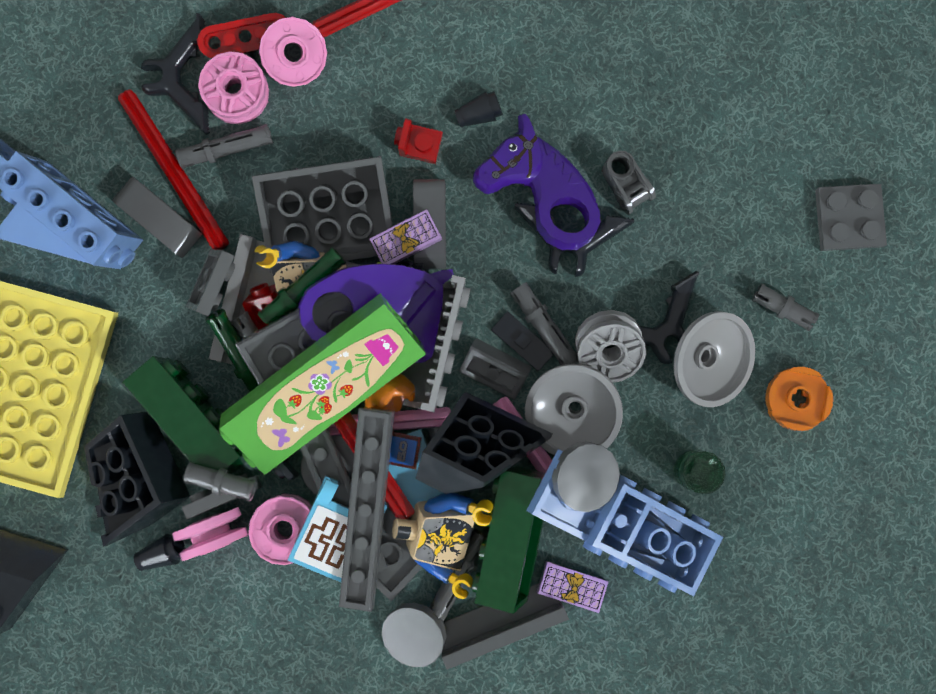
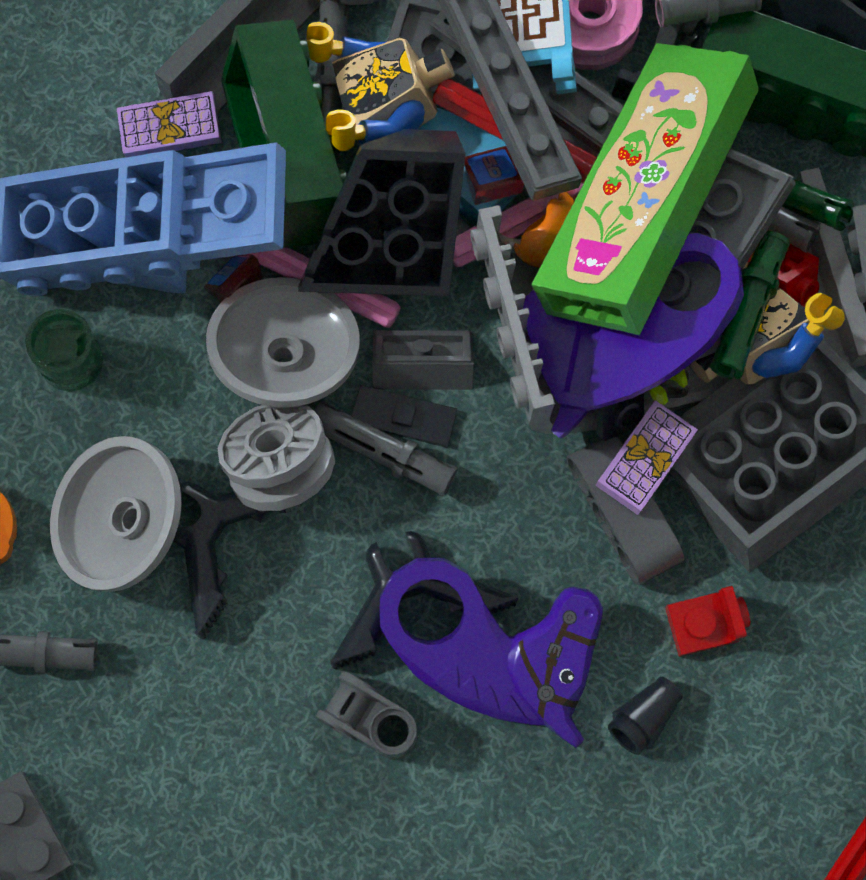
camera: 150 degrees right, 10 degrees down
(586, 476) = (226, 226): tile -> none

